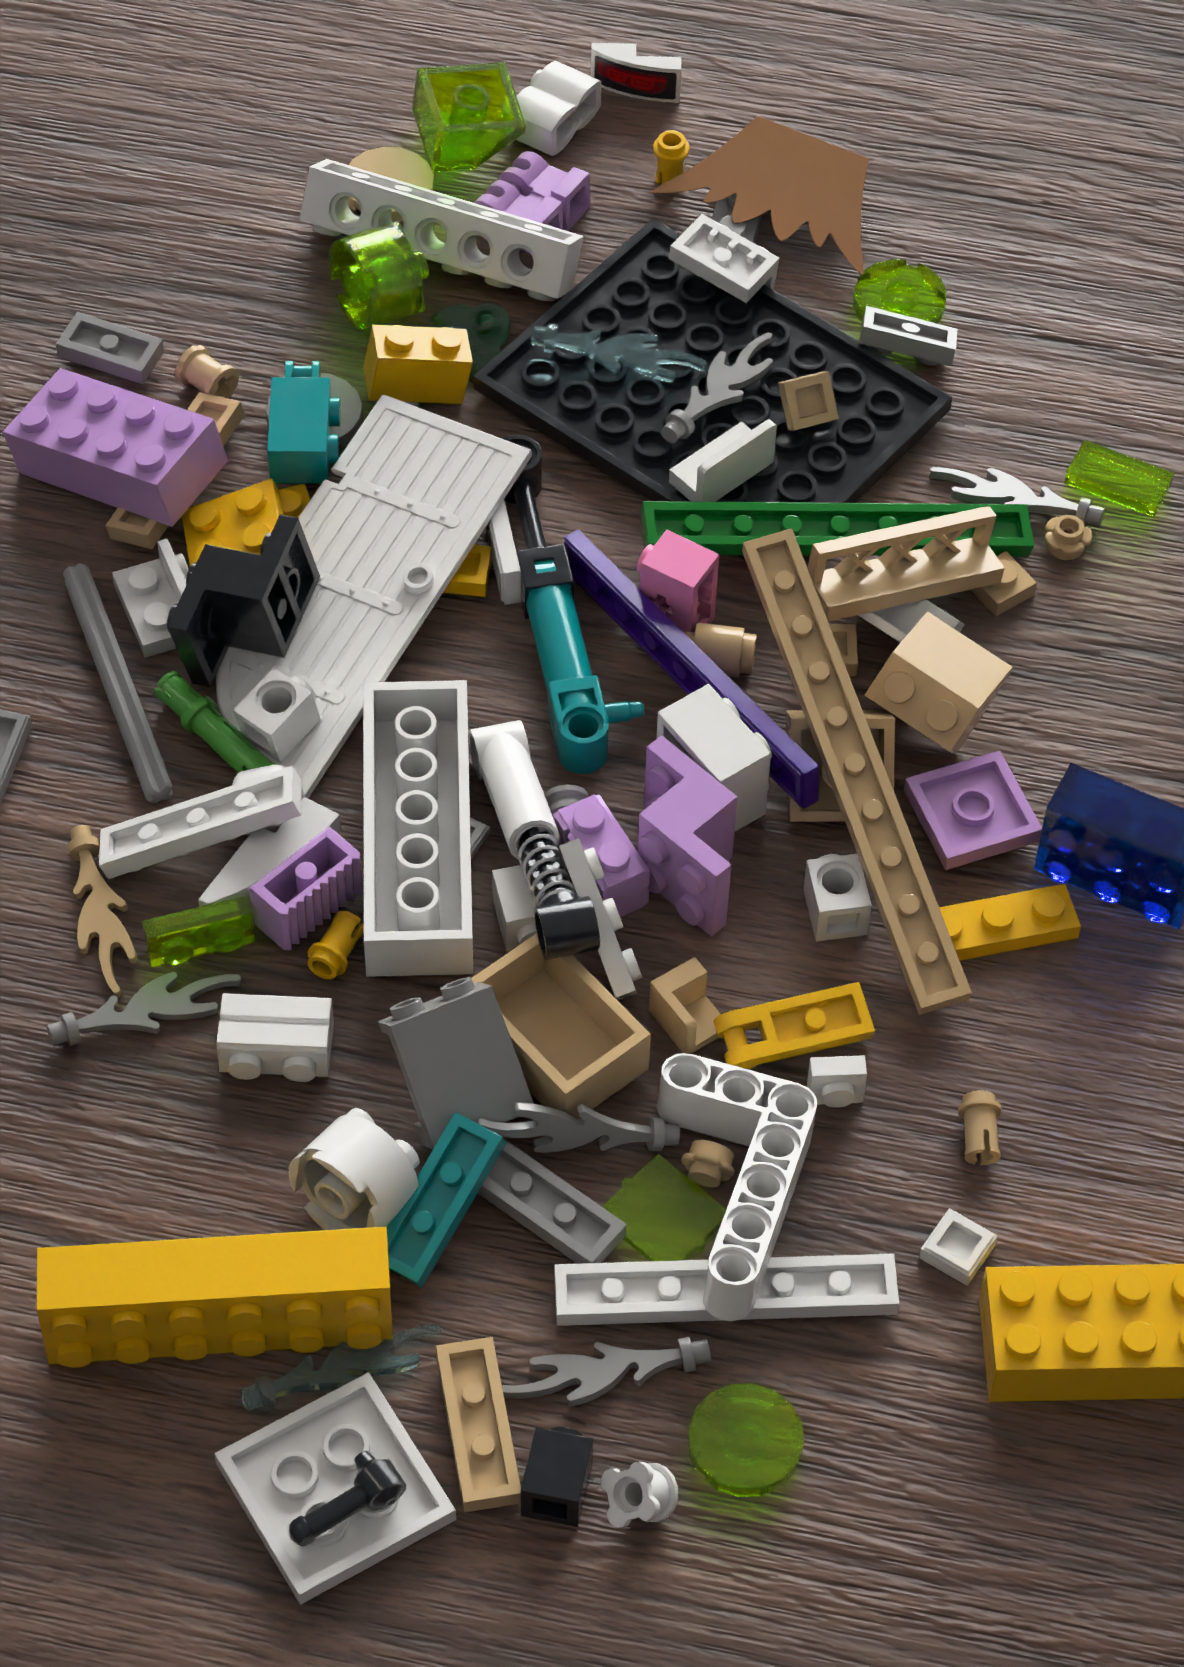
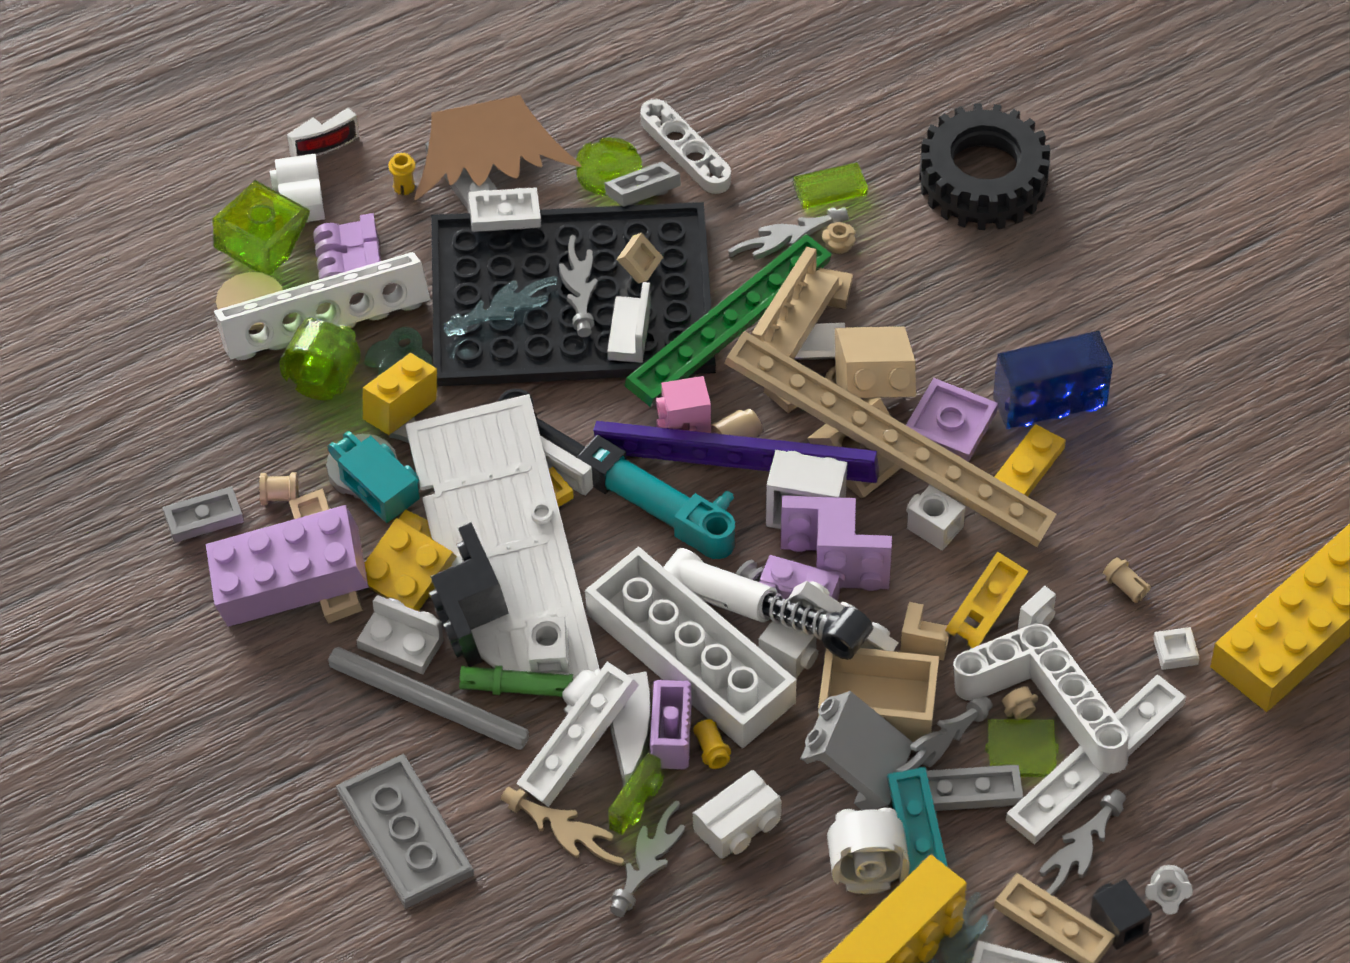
camera: 40 degrees left, 0 degrees up
(745, 1439) = (1181, 823): clear neon green tile -> none
(1003, 332) = (681, 148): none -> white beam

